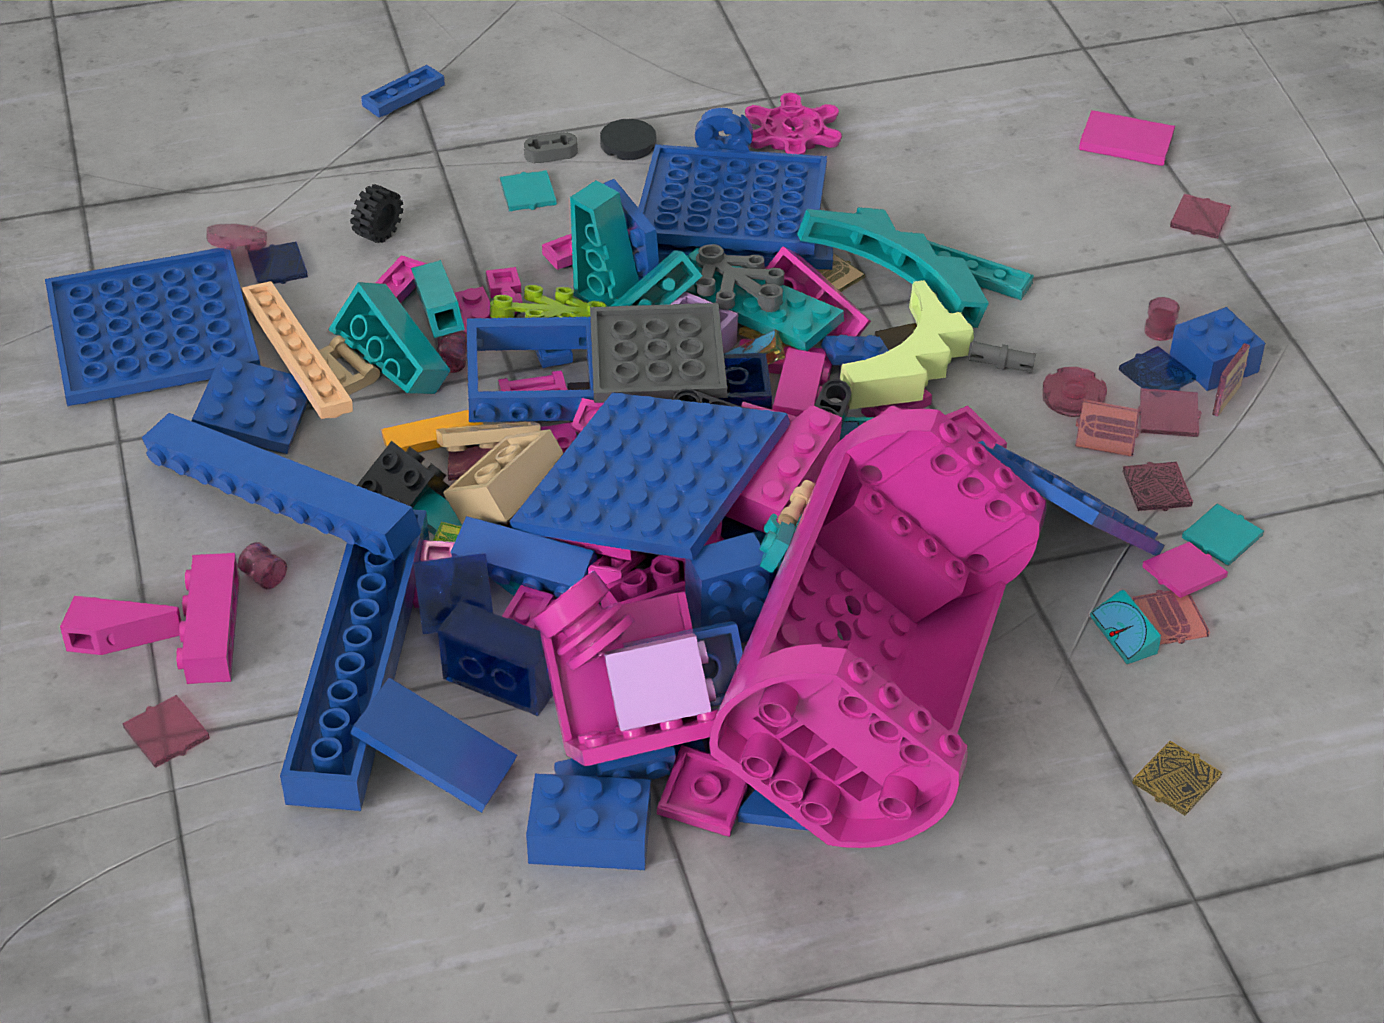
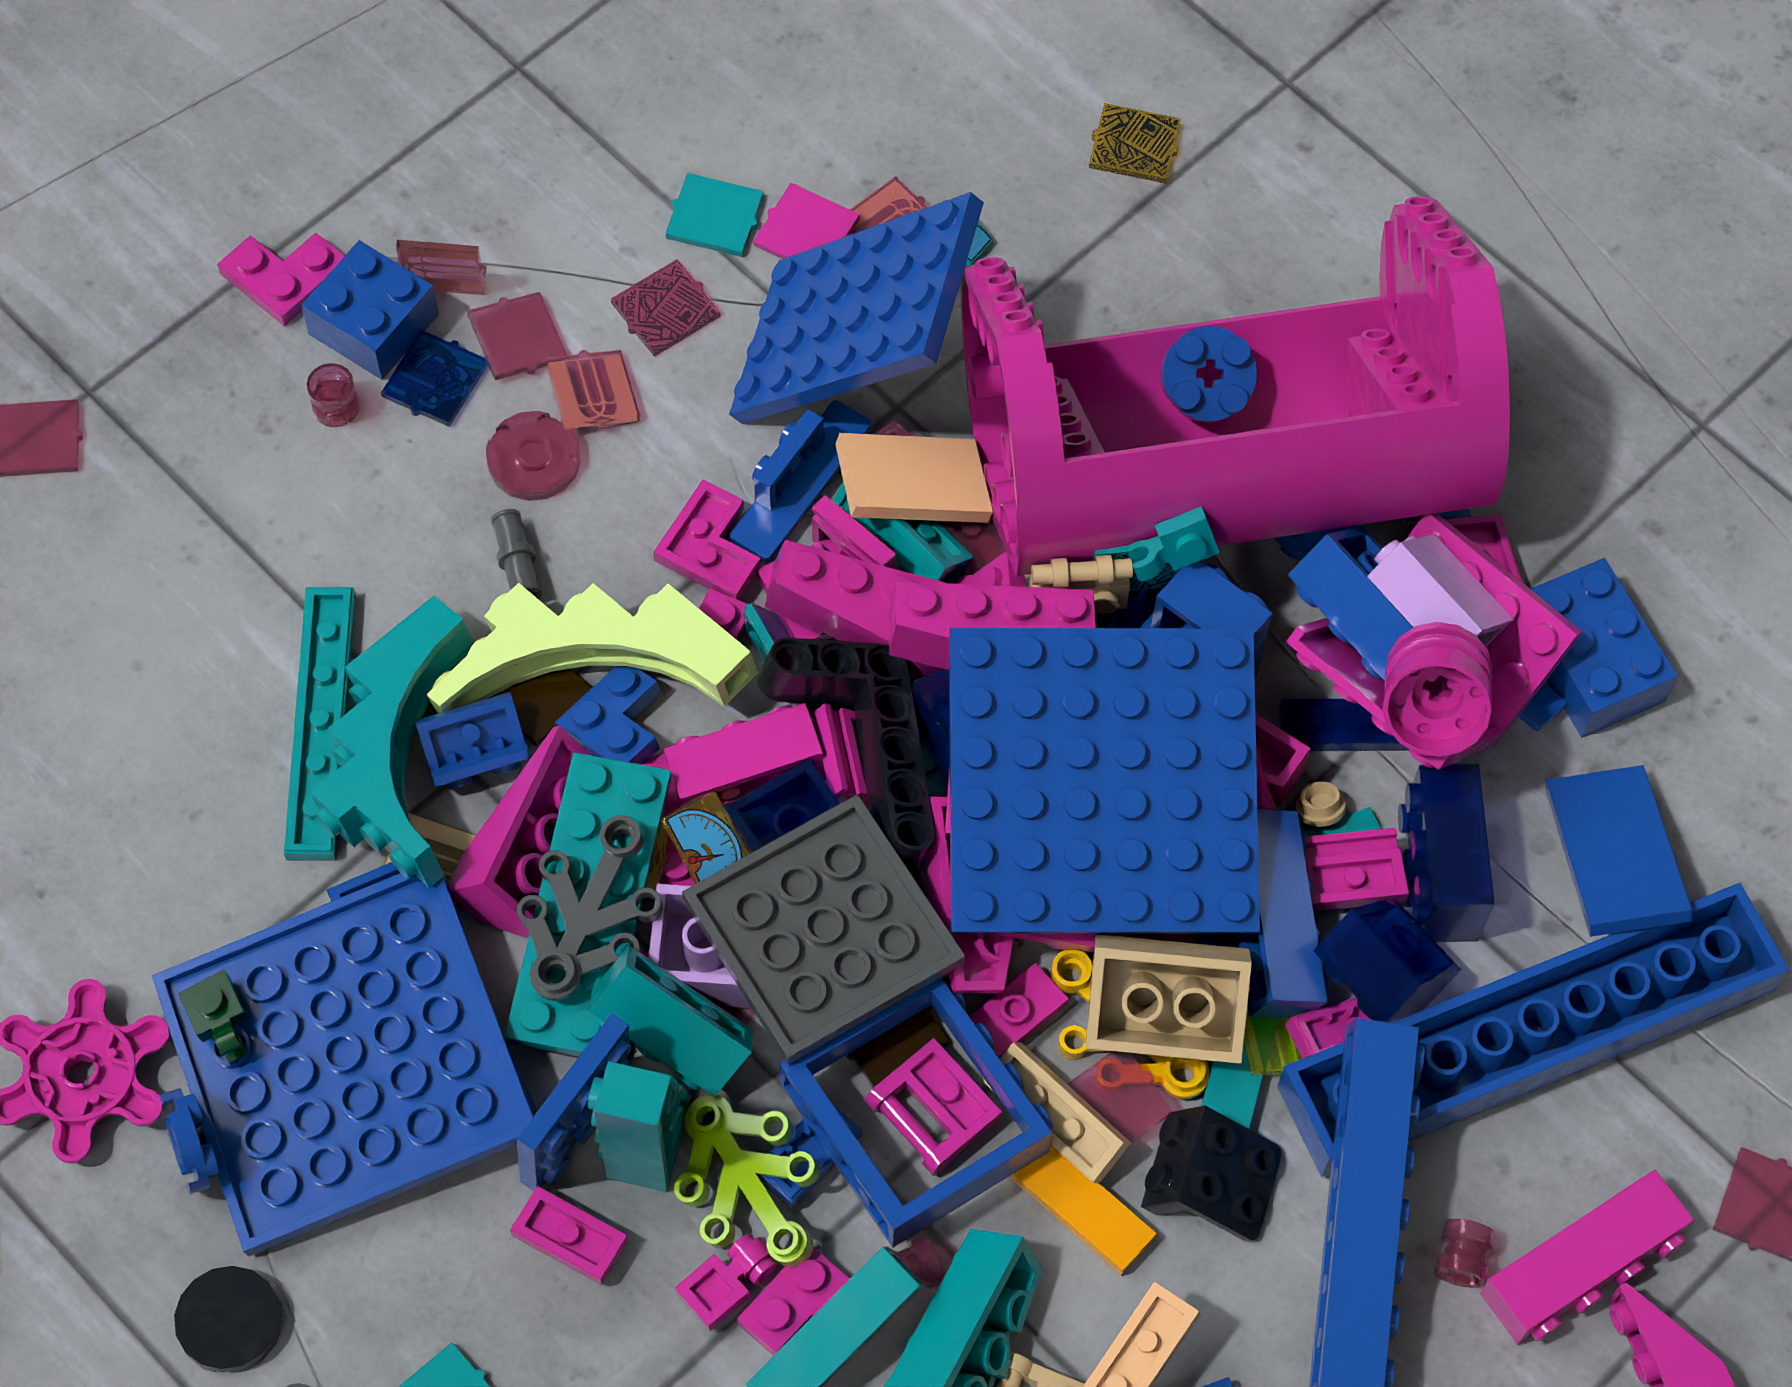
camera: 120 degrees left, 20 degrees up
(786, 160) = (214, 1013): none -> dark green plate
(887, 300) = (472, 741): none -> blue bracket
(931, 678) = (1230, 356): none -> blue plate
(1272, 328) = (278, 284): none -> dark pink plate

